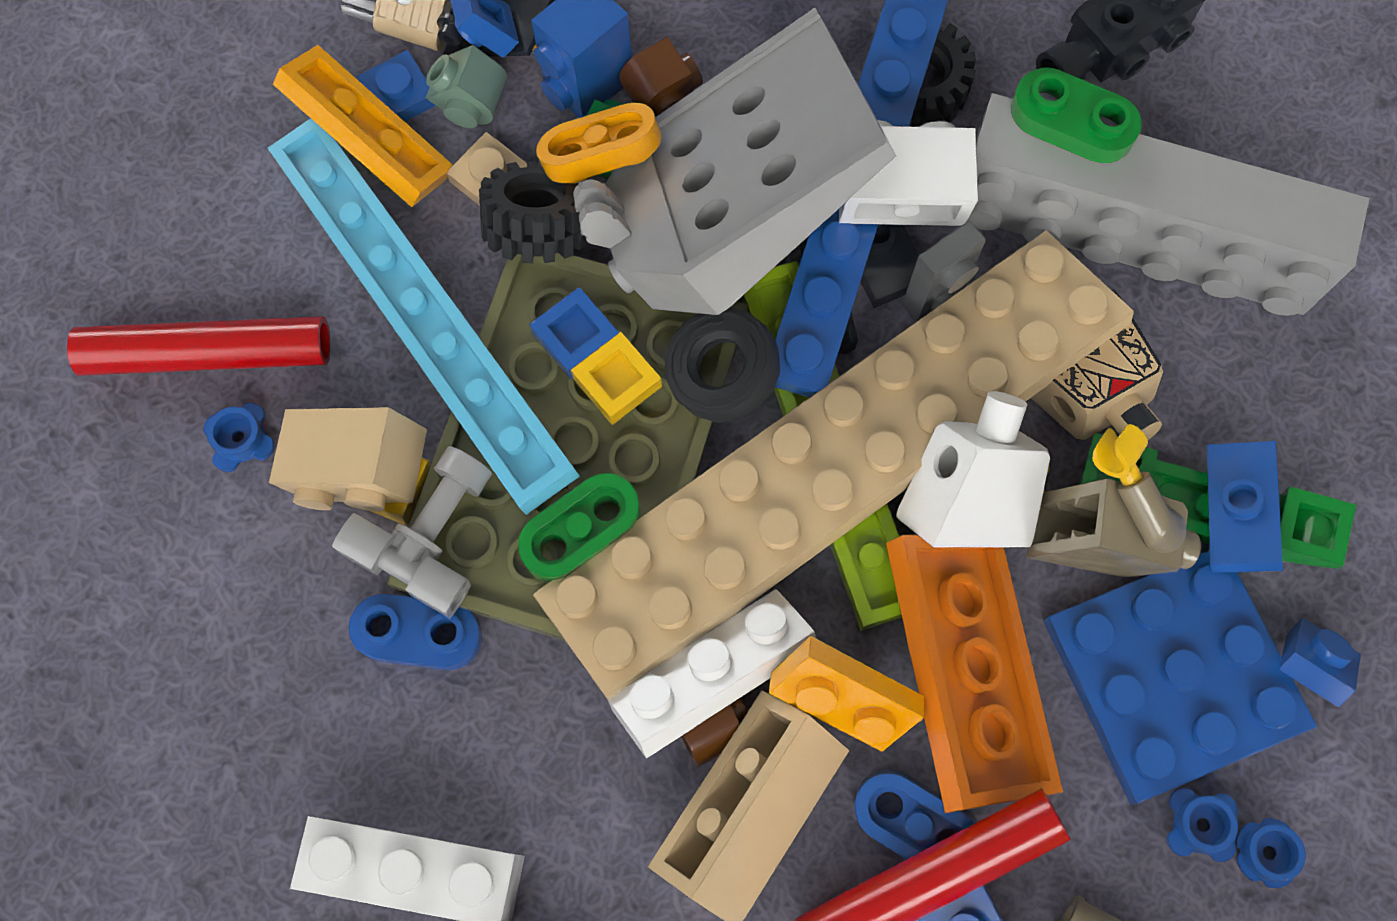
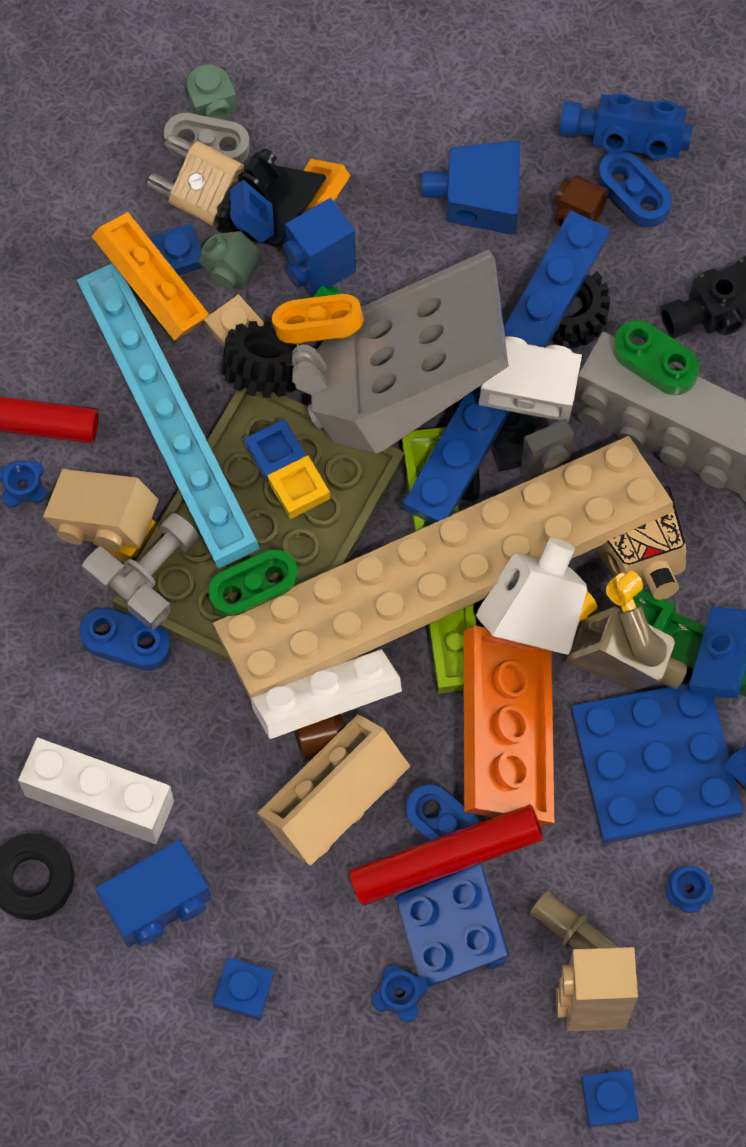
camera: 10 degrees right, 5 degrees down
(660, 76) = (373, 276): reddish brown plate -> none
(749, 388) = (392, 508): black tyre -> none
(846, 694) = (413, 723): light orange plate -> none
(1222, 829) = (647, 849): blue plate -> none

